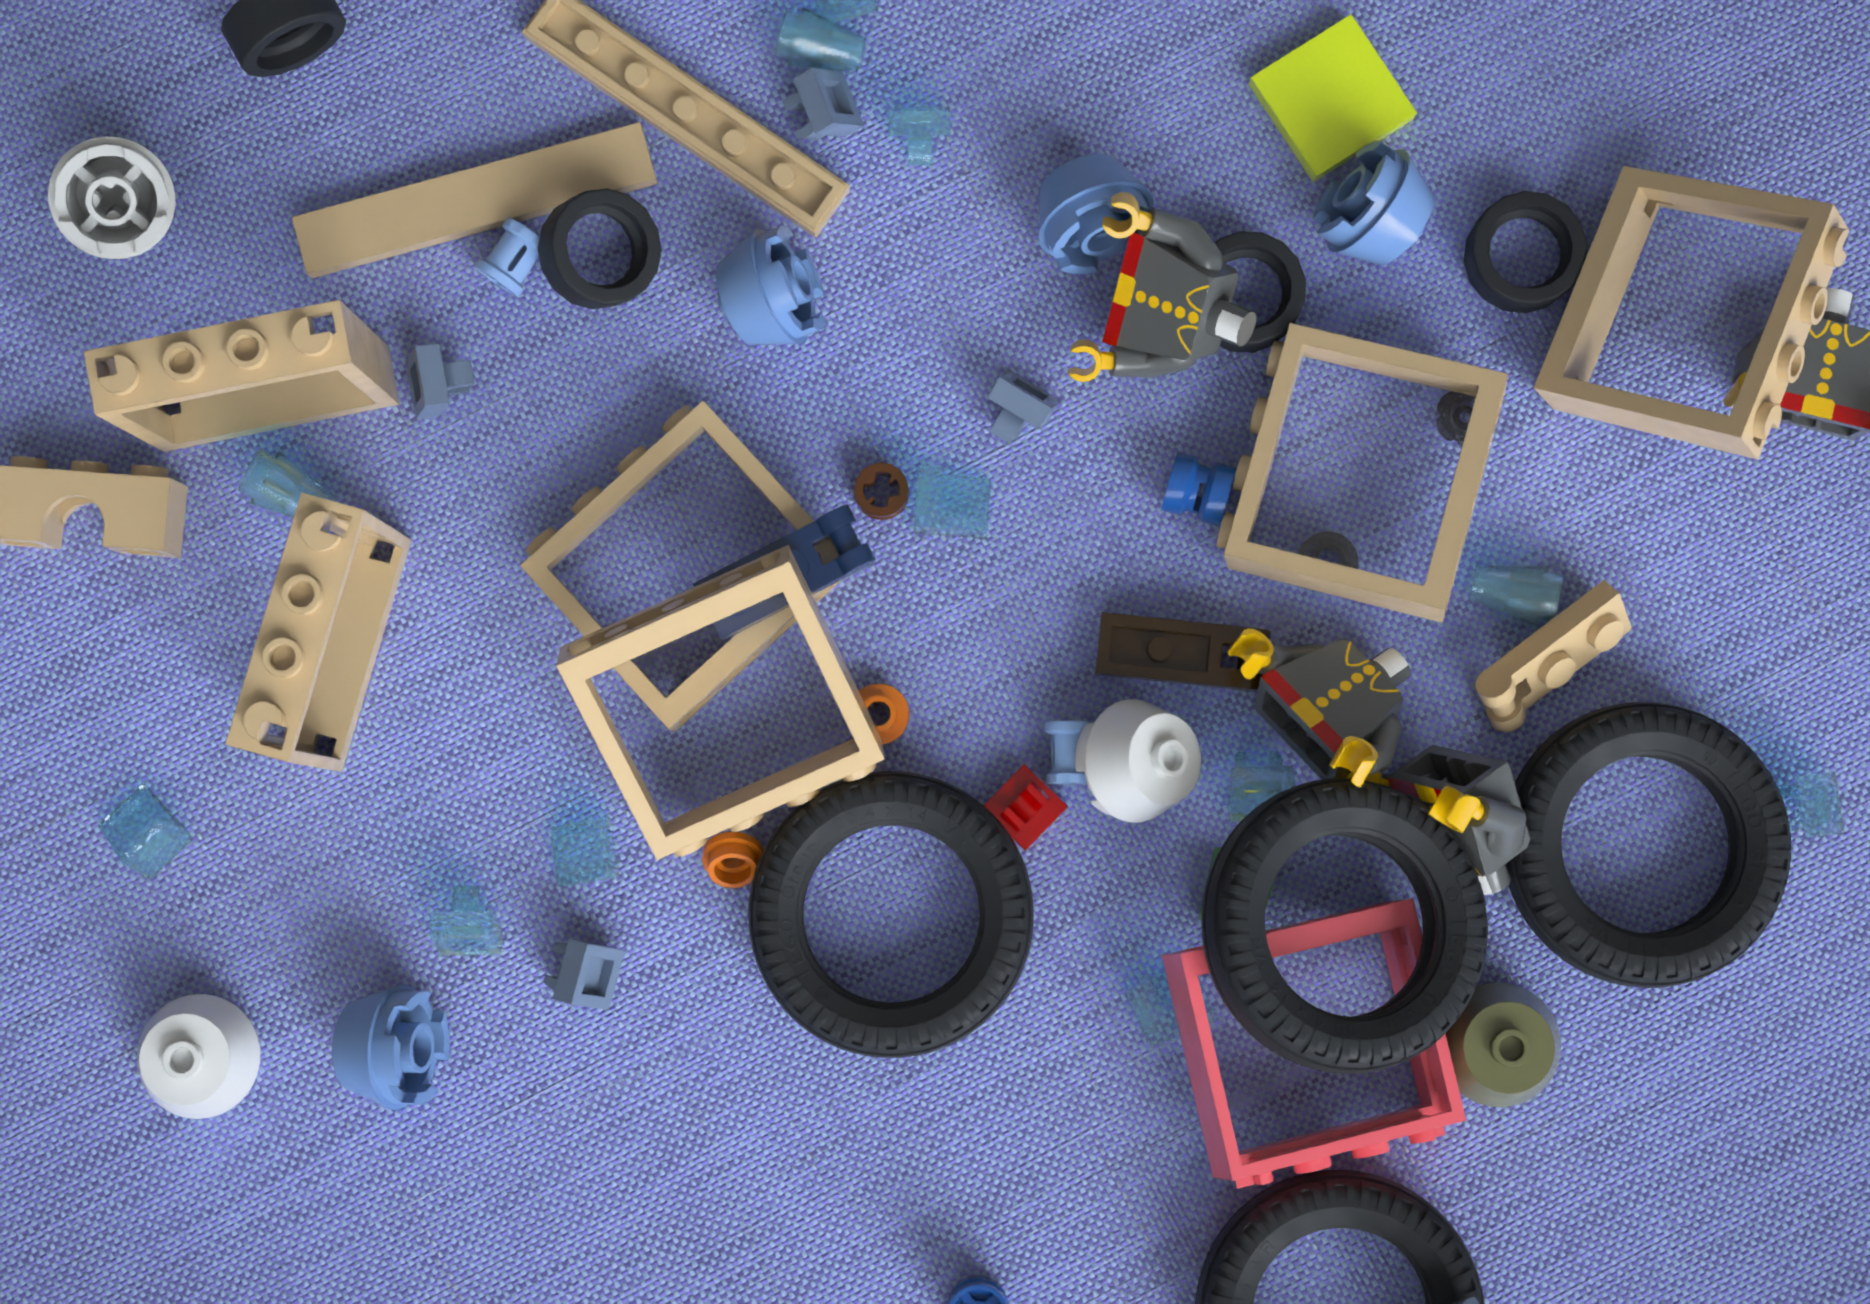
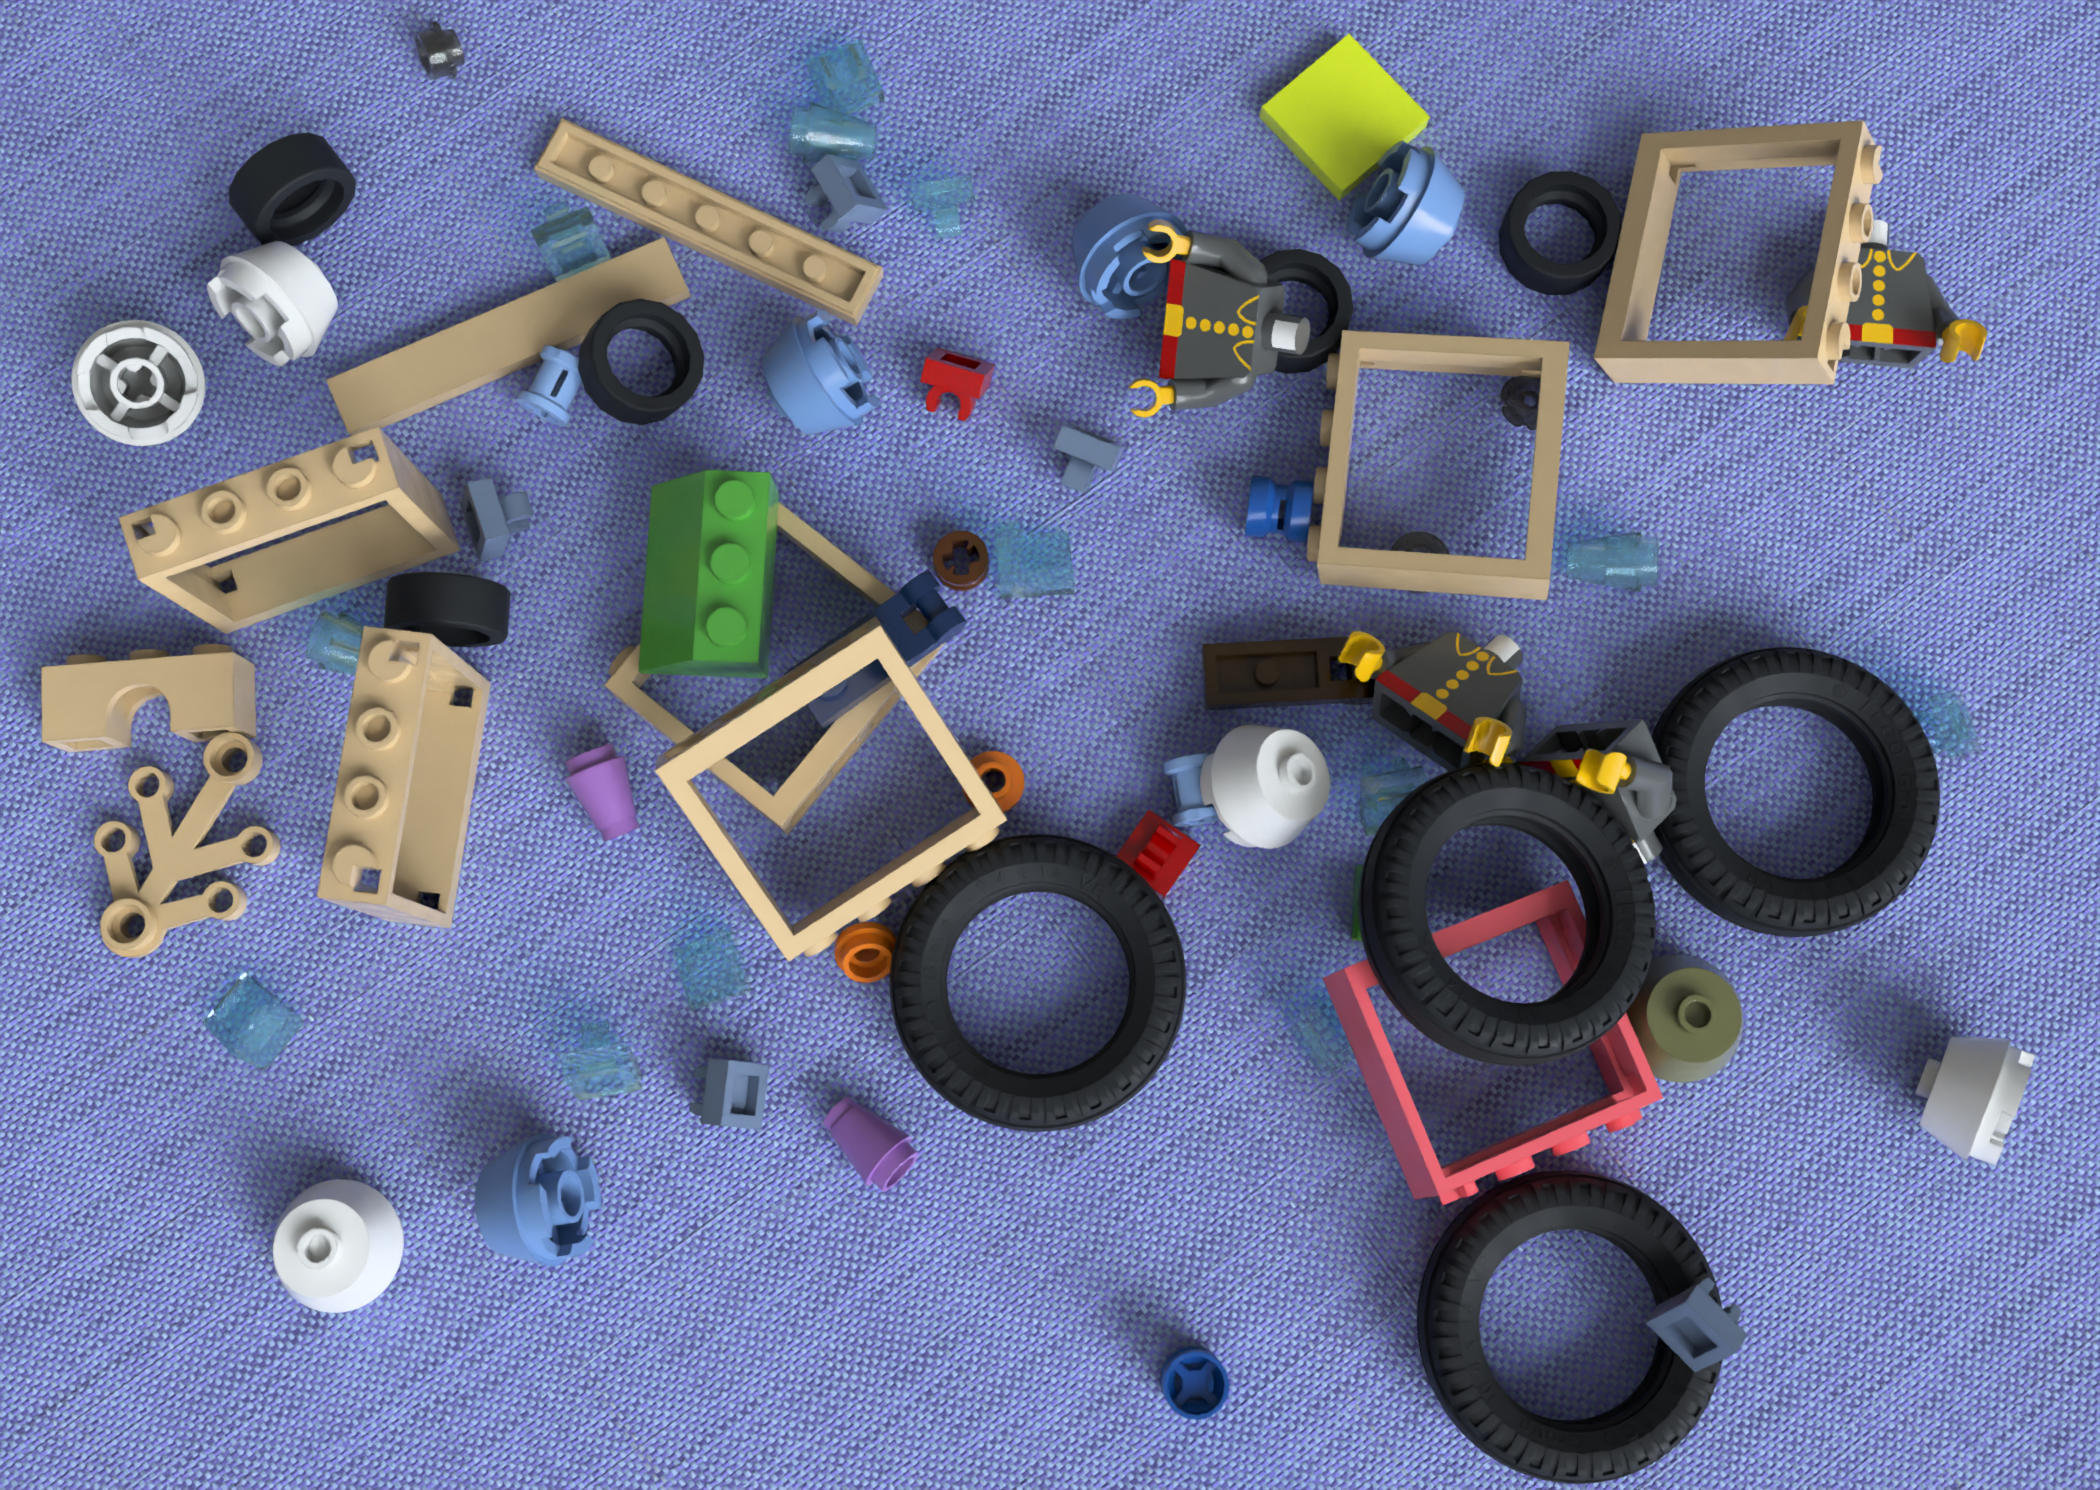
camera: 15 degrees left, 5 degrees down
(92, 661) = (178, 854): none -> tan plant
(254, 132) = (276, 299): none -> white cone
(379, 467) = (450, 606): none -> black tyre
(505, 664) = (604, 790): none -> medium lavender cone
(547, 114) = (570, 241): none -> clear light blue tile
(635, 476) = (710, 575): none -> bright green slope
(709, 1041) = (871, 1144): none -> medium lavender cone
(906, 306) = (956, 374): none -> red tile
(1552, 656) = (1660, 618): tan plate -> none
(1764, 1164) = (1974, 1095): none -> white cone

